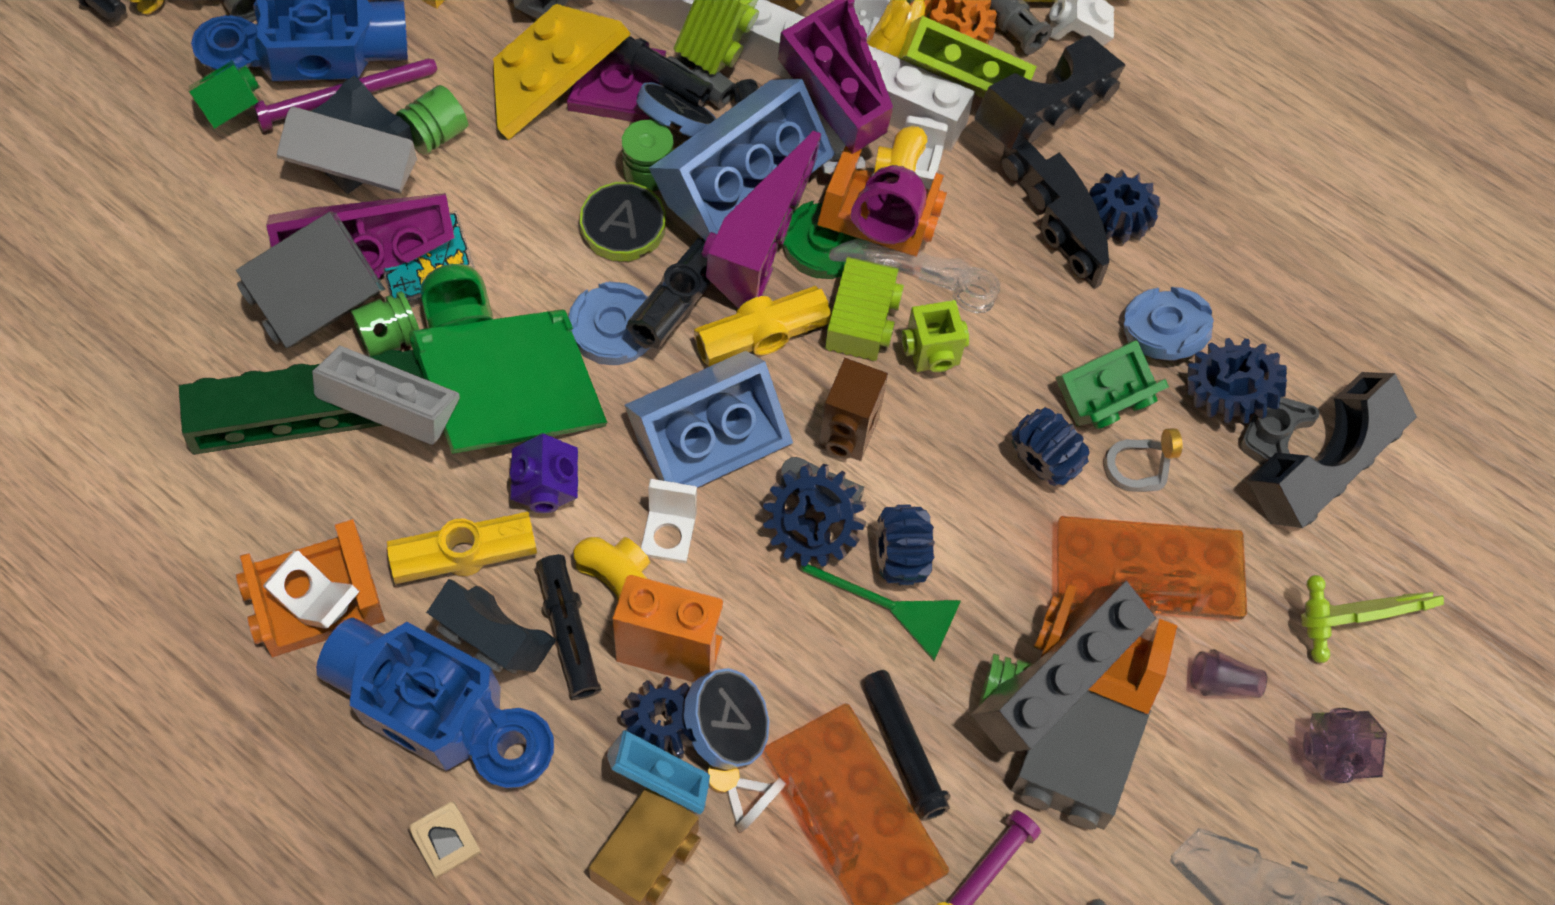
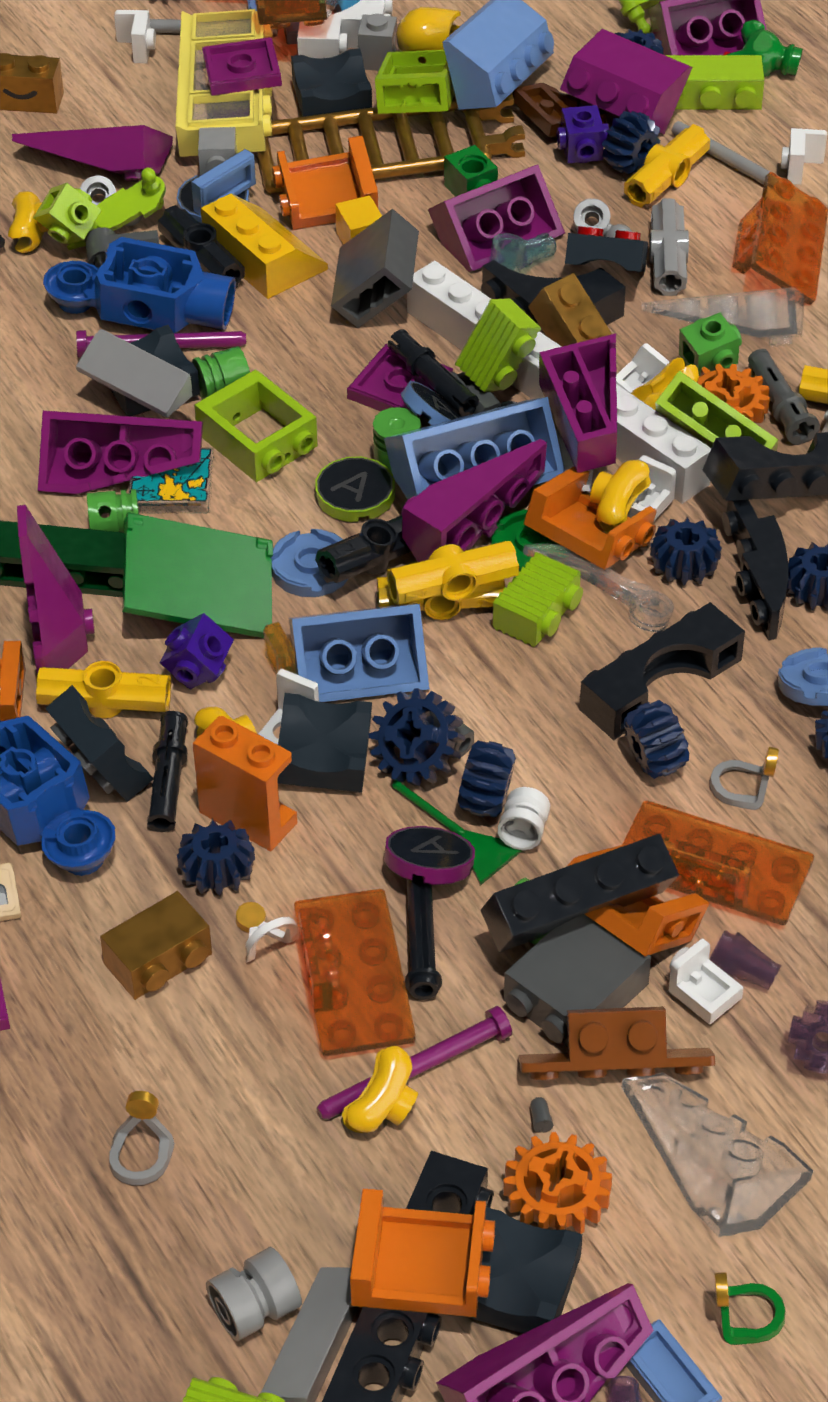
camera: 25 degrees right, 15 degrees down
(225, 92) = (56, 316): green brick -> none
(308, 280) = (61, 461): dark grey brick -> none
(375, 467) = (53, 599): none -> magenta wedge
(384, 394) = (90, 555): light grey slope -> none
(454, 296) = (179, 499): green helmet -> none
(460, 149) = (243, 399): none -> lime window
(549, 61) = (342, 349): yellow wing -> none
(629, 447) = (278, 648): none -> clear yellow tile
(659, 771) = (193, 884): dark azure slope -> none
(721, 546) = (325, 743): none -> black brick
(727, 718) = (269, 865): tile -> none
(779, 310) = (452, 572): none -> yellow piece
(852, 409) = (486, 665): reddish brown brick -> none
(879, 650) = (430, 853): none -> tile
(894, 205) = (594, 509): magenta helmet -> none
(935, 336) = (591, 631): lime brick -> none
(955, 577) = (524, 818): none -> white wheel
(983, 211) = (685, 551): none -> dark blue gear
(989, 397) = (698, 644): none -> black arch
(1109, 385) = (740, 710): green bracket -> none
(1152, 823) = (616, 1040): none -> dark orange bracket
(1202, 718) = (702, 983): none -> white bracket

